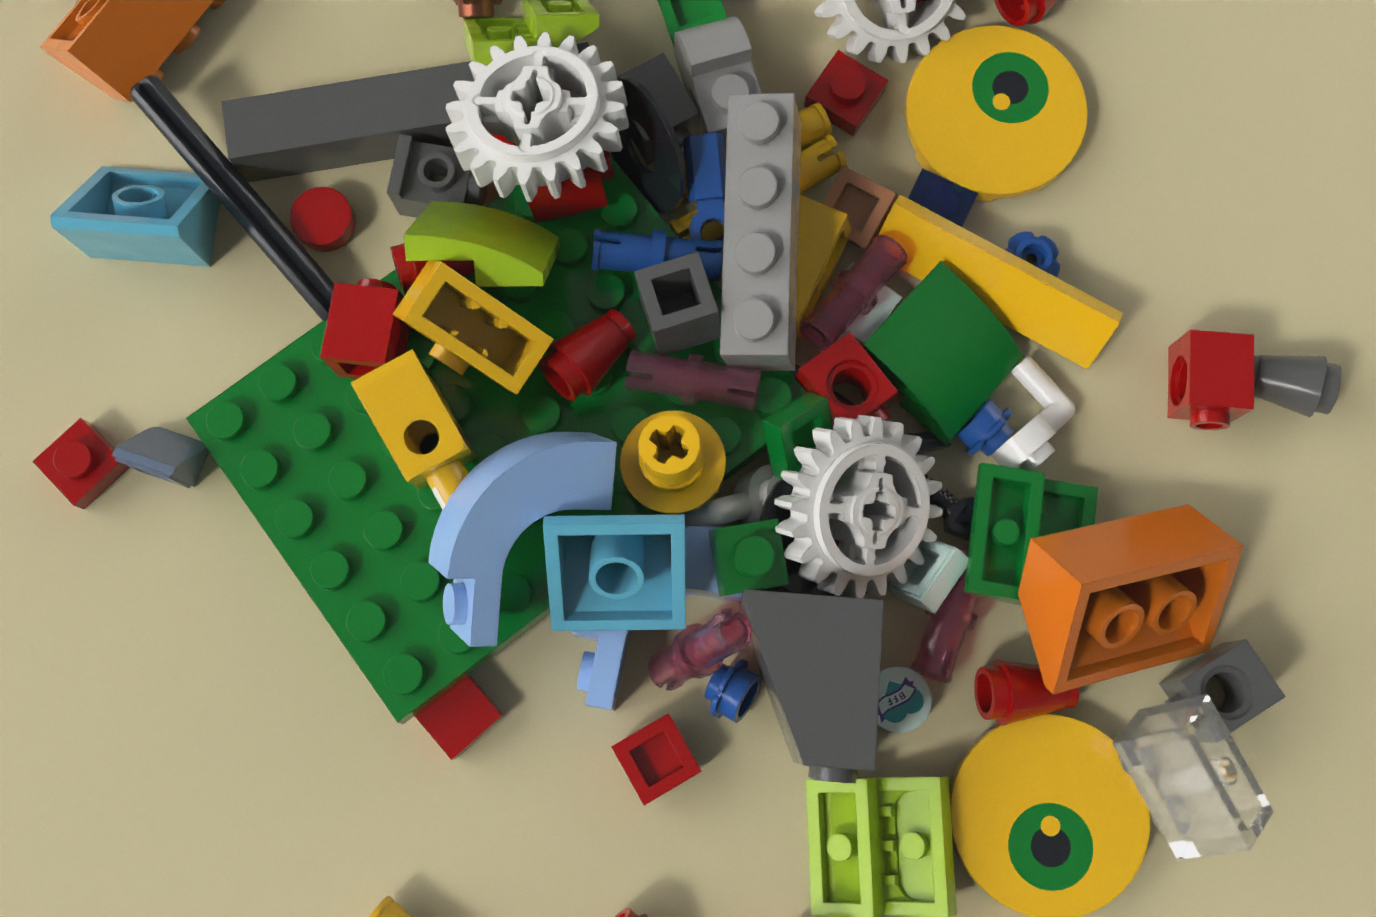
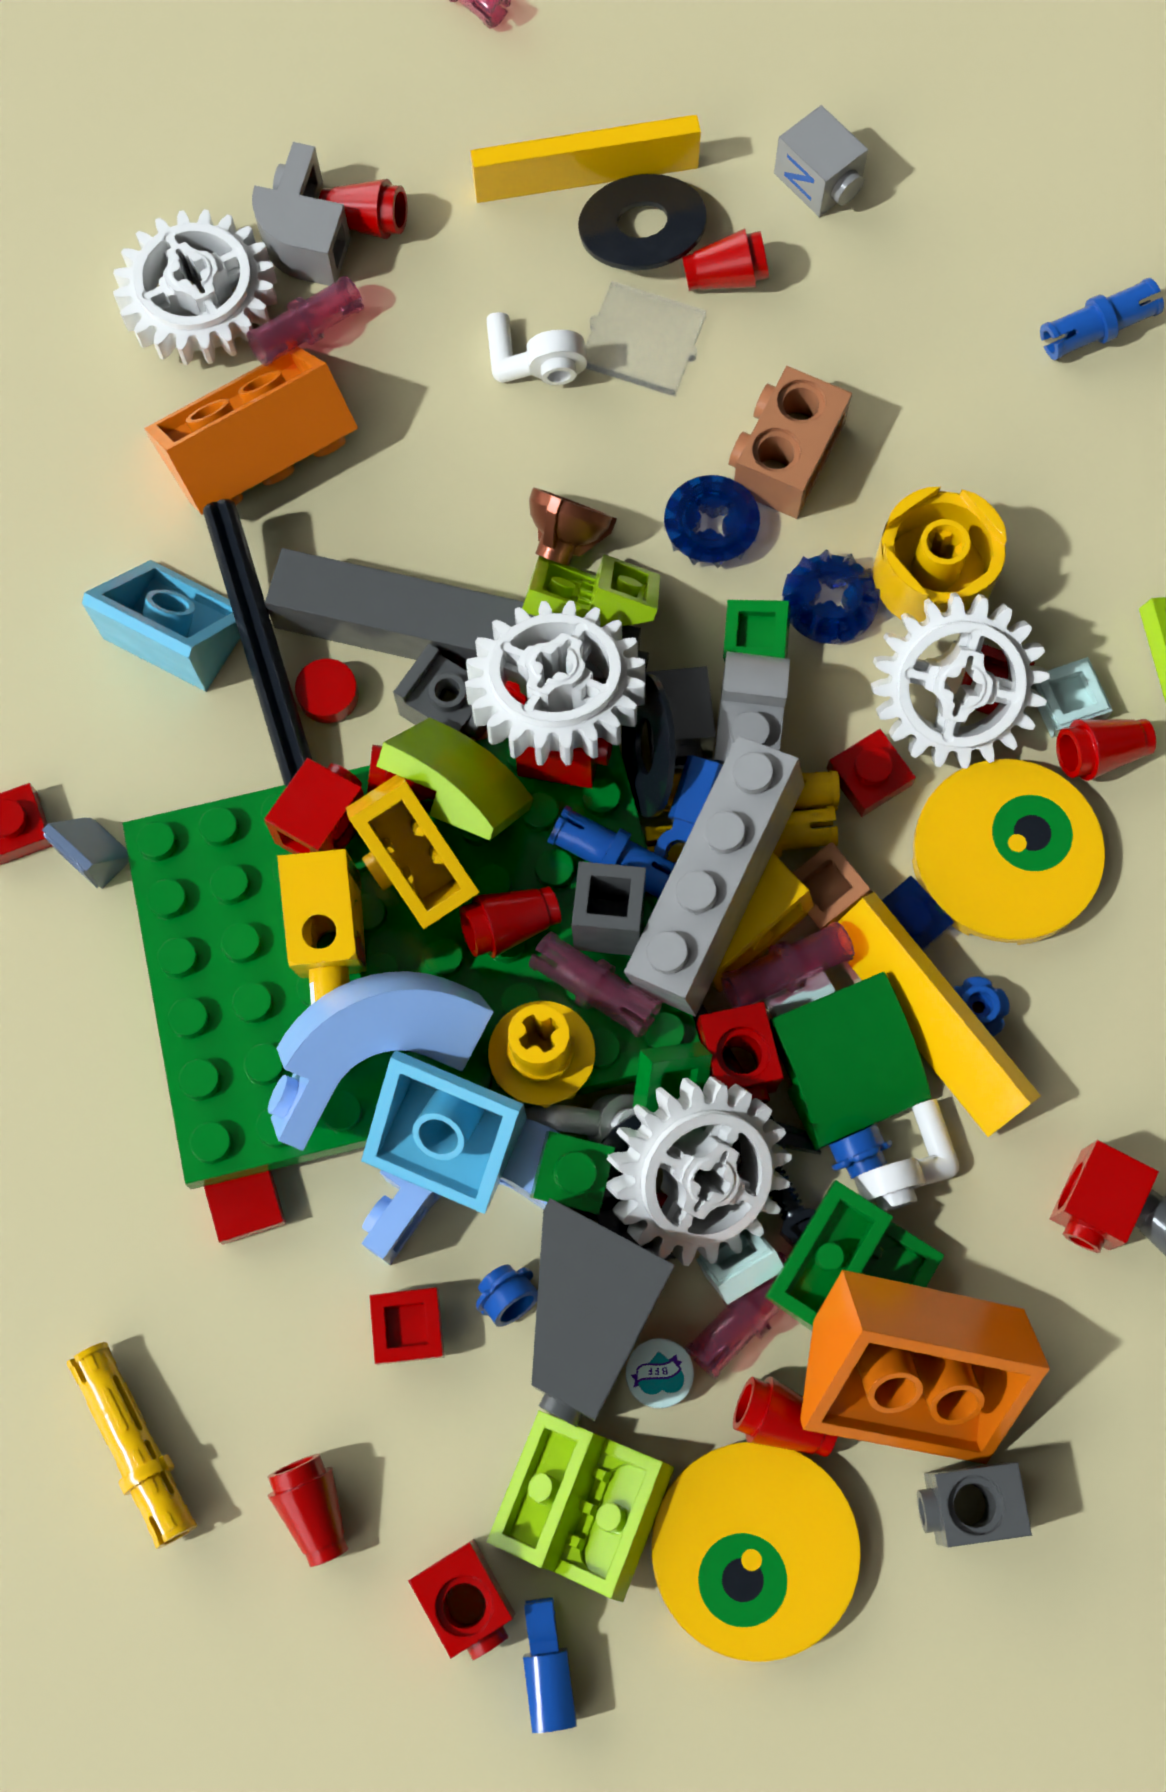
camera: 25 degrees right, 5 degrees down
(699, 650) = (489, 1239): clear pink pin -> none
(1193, 778) = (906, 1573): clear brick -> none

